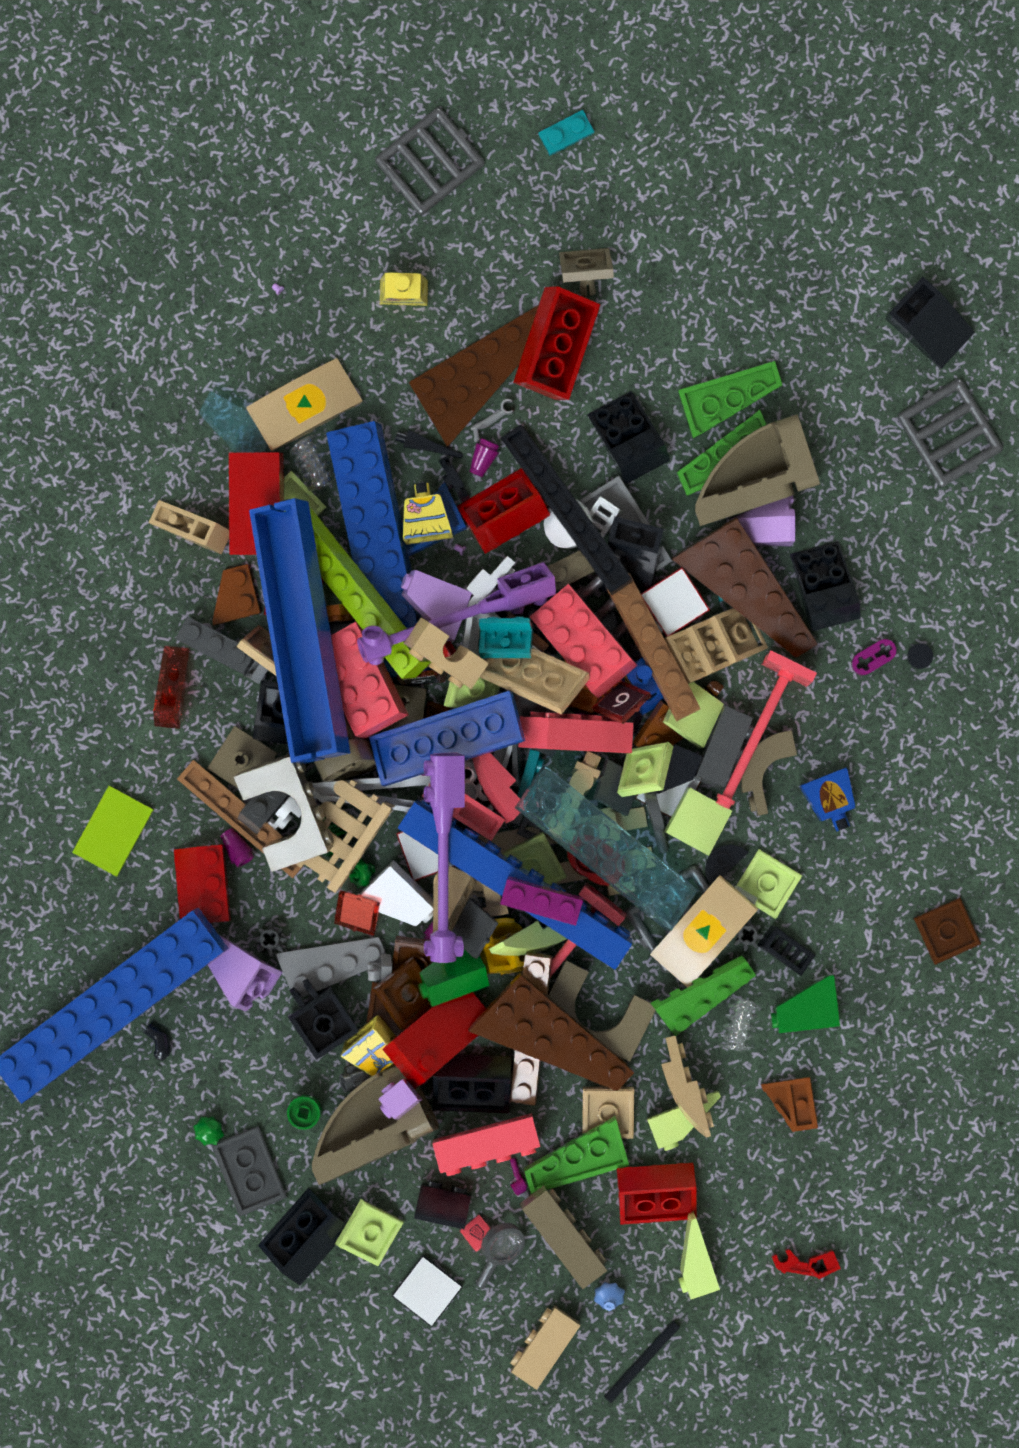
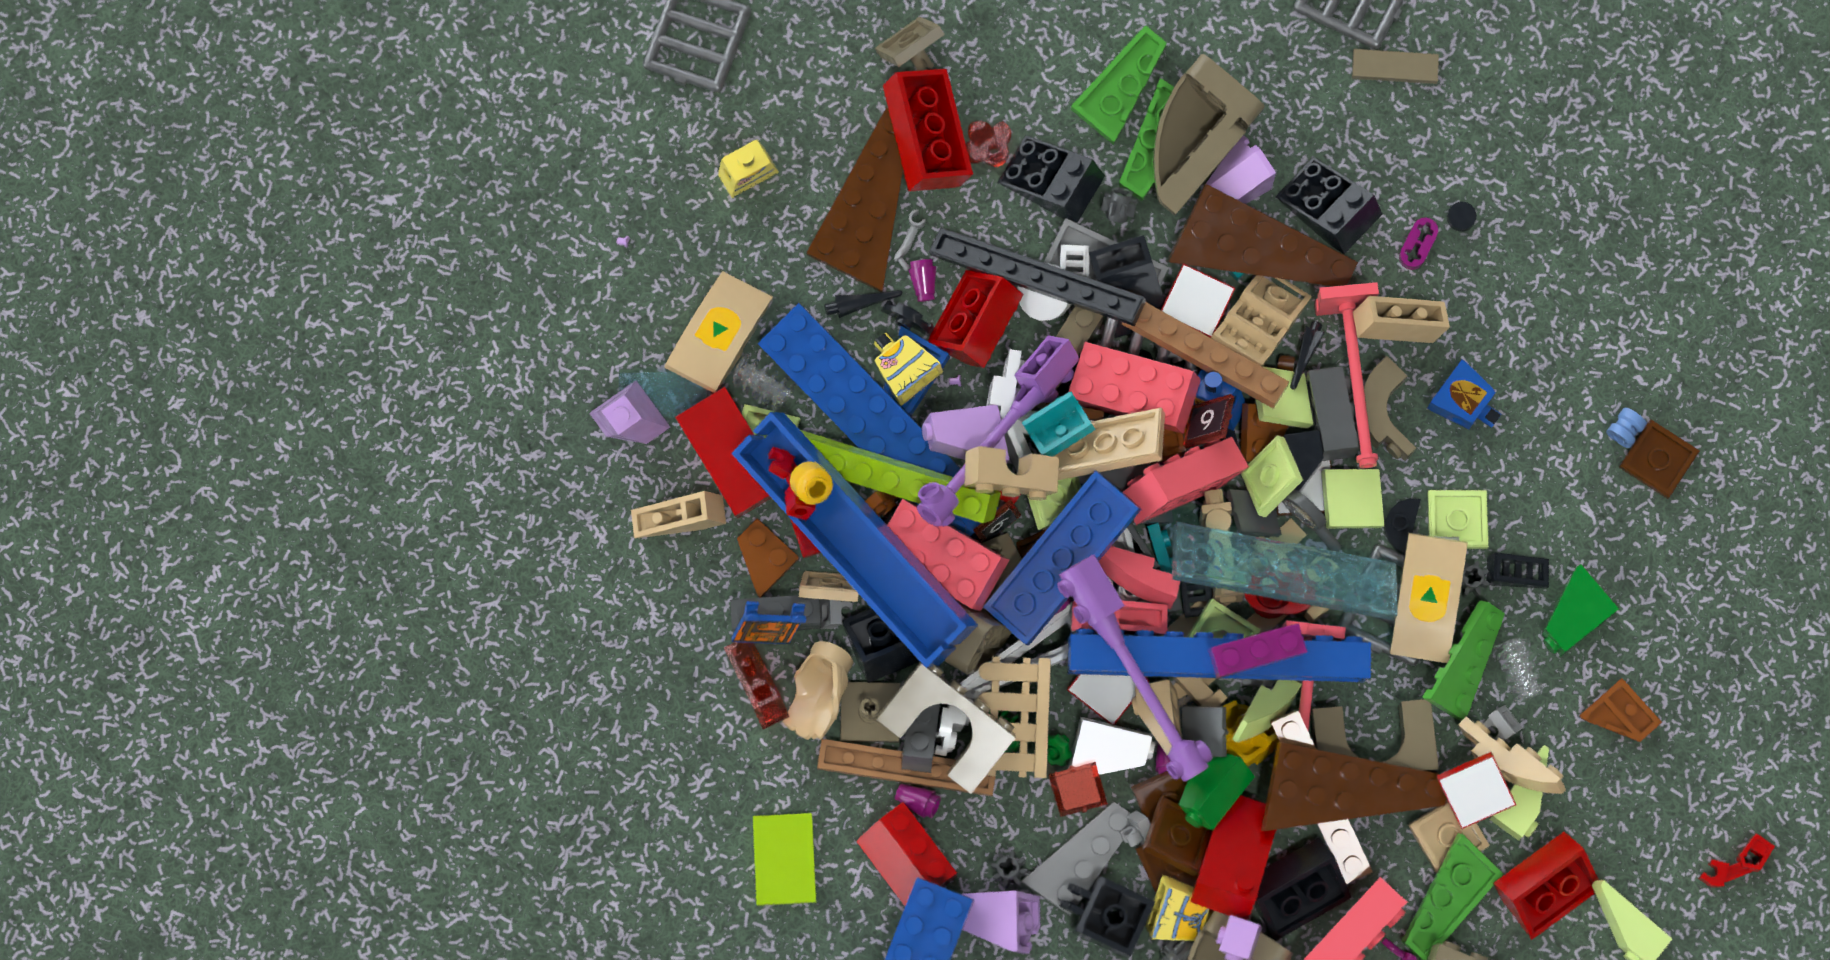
camera: 25 degrees left, 10 degrees down
(199, 429) = (630, 416): none -> lavender slope
(202, 655) = (768, 628): none -> flag
(214, 721) = (819, 690): none -> tan hair
(283, 548) = (783, 468): none -> red piece
(289, 572) = (811, 483): none -> yellow head
(598, 375) = (986, 138): none -> clear red plate
(645, 1095) = (1476, 790): none -> white tile
(666, 489) = (1119, 204): none -> dark grey gear
(702, 1056) = (1504, 722): none -> light grey tile
(741, 684) = (1309, 343): none -> black piece
(819, 709) = (1401, 319): none -> tan brick
(937, 893) = (1626, 427): none -> medium blue wheel
(945, 508) = (1395, 66): none -> dark tan tile

